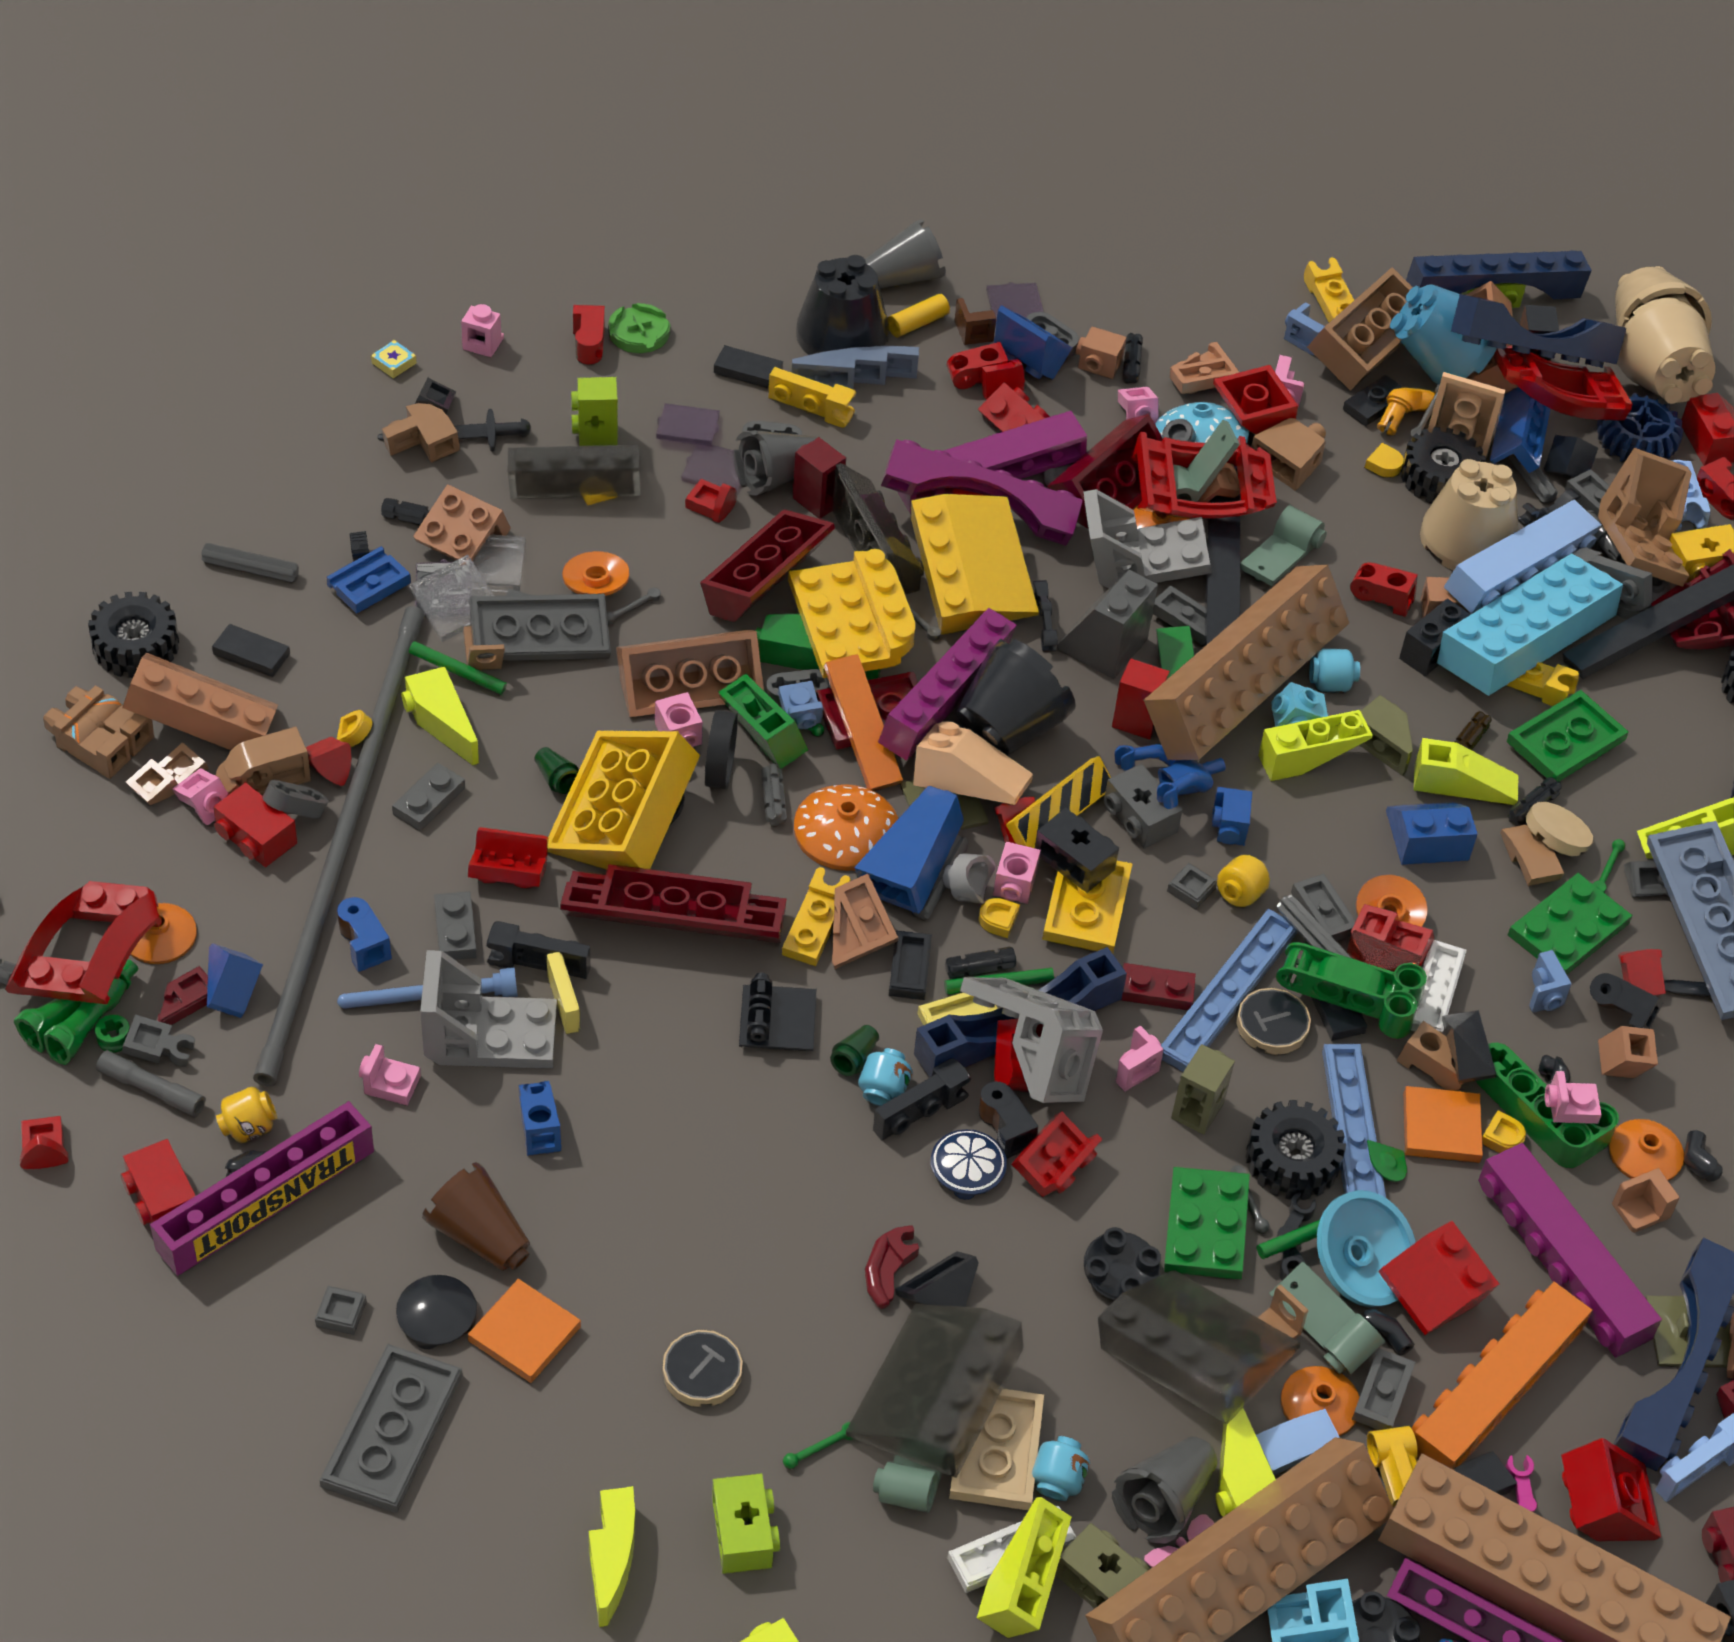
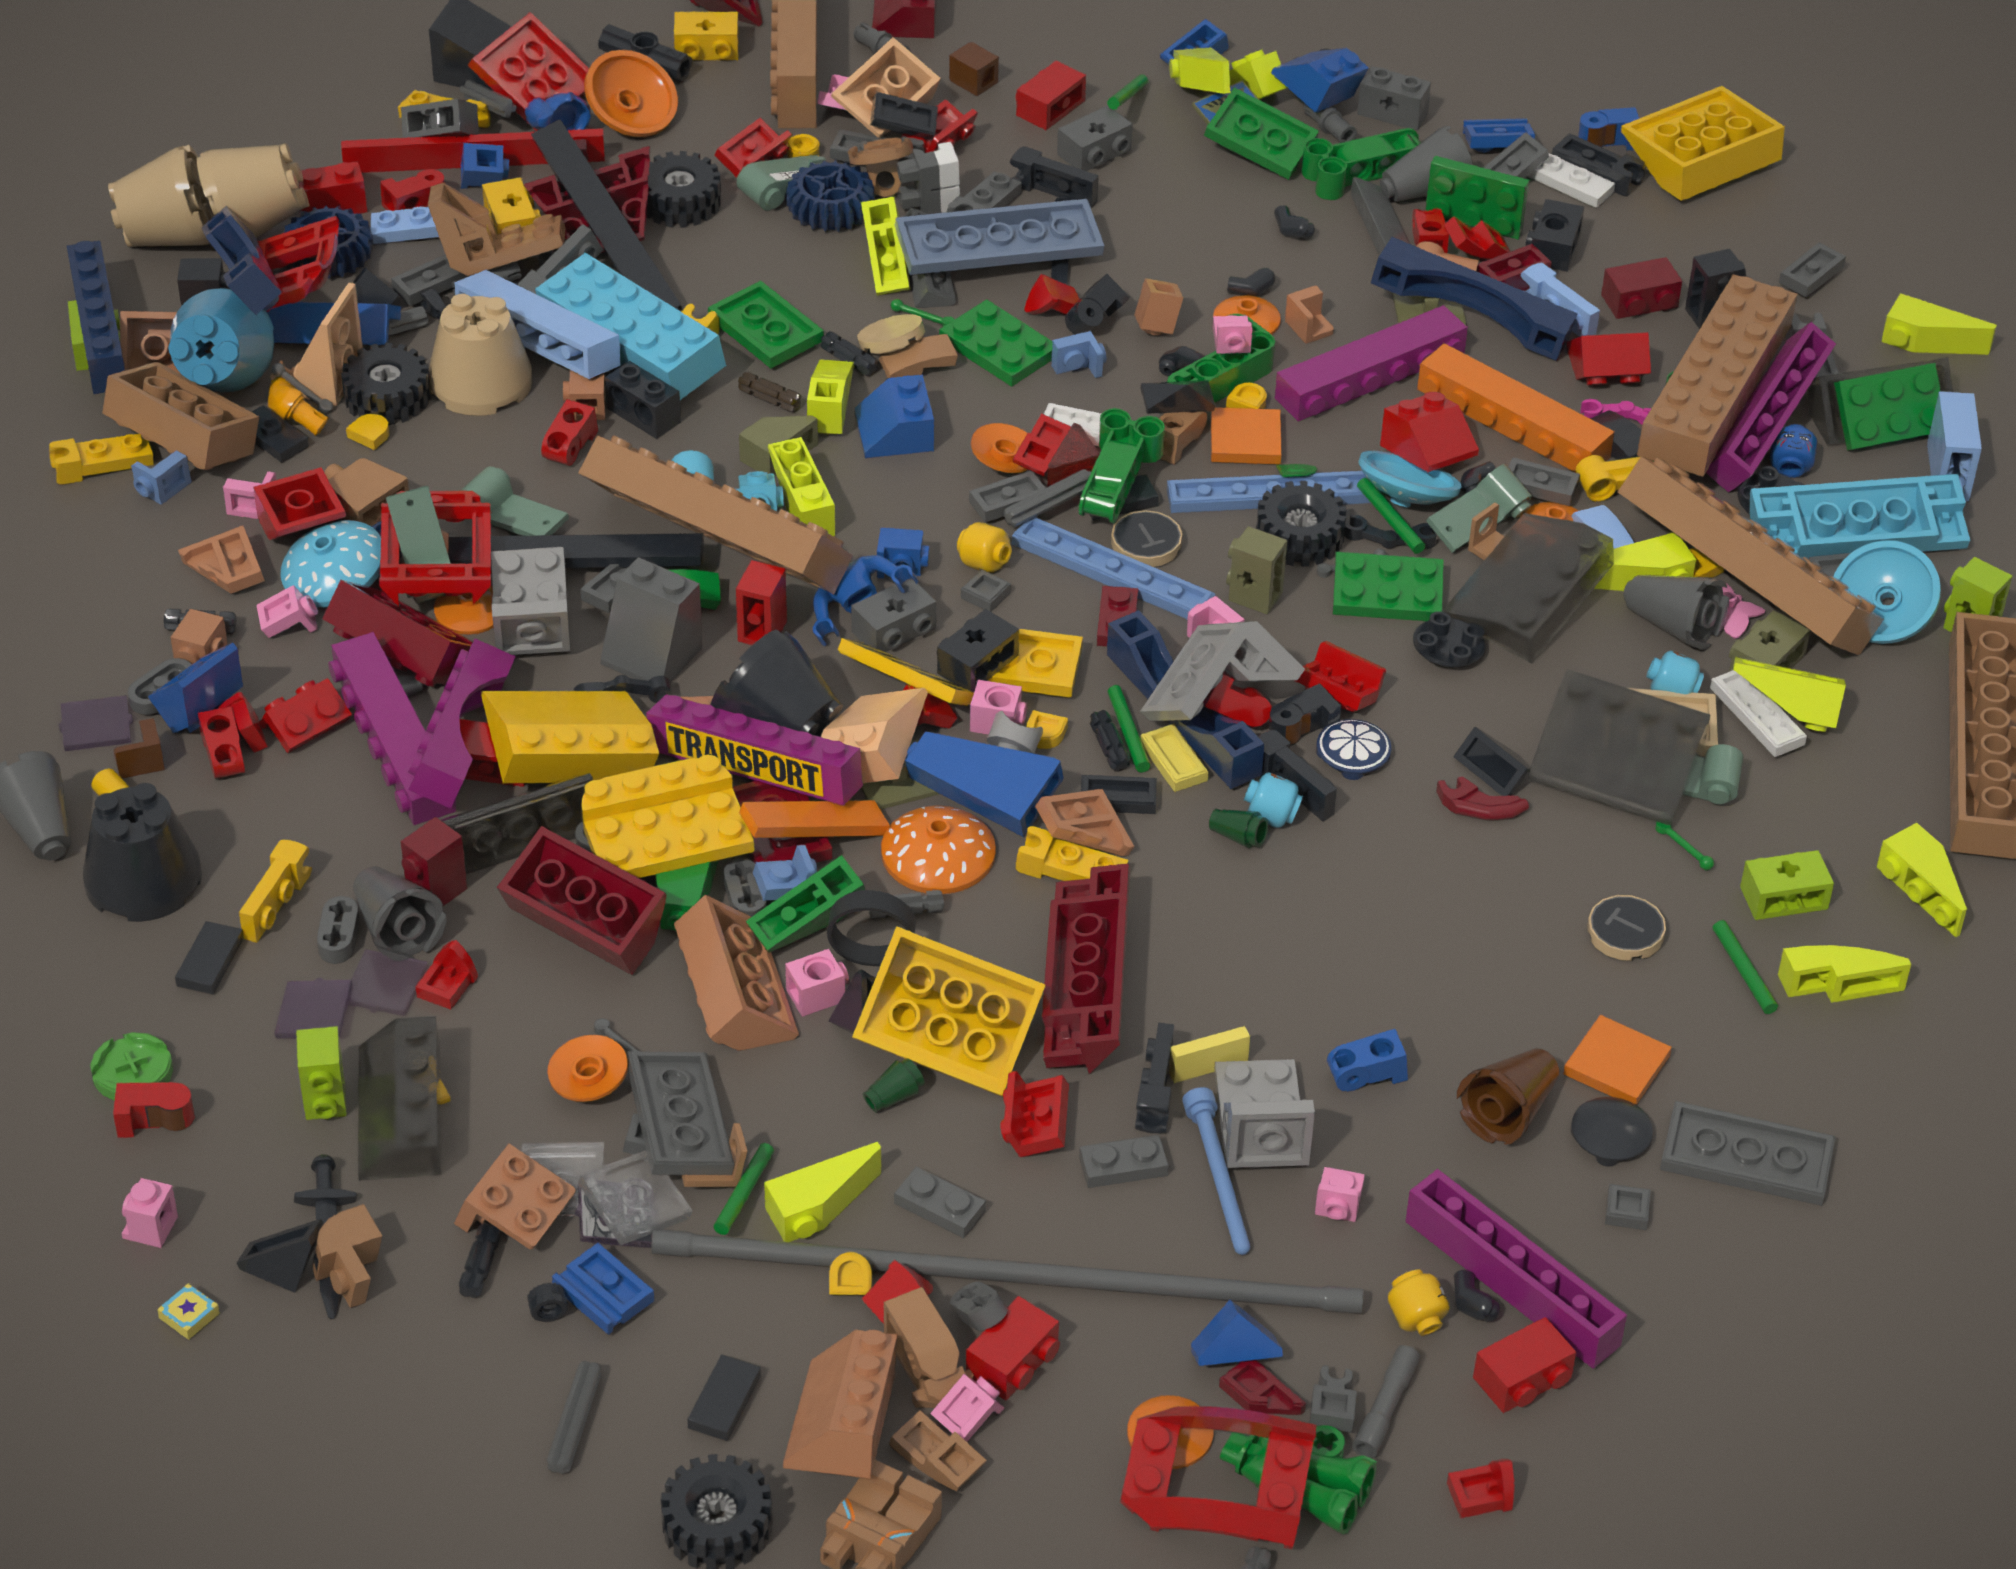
camera: 90 degrees left, 5 degrees down
(367, 937) = (1153, 1232): blue leg -> none
(639, 1470) = (1745, 967): none -> green bar
(777, 1016) = (1204, 890): black hinge -> none
(858, 365) = (223, 852): sand blue slope -> none
(1179, 430) = (362, 565): black tile -> none

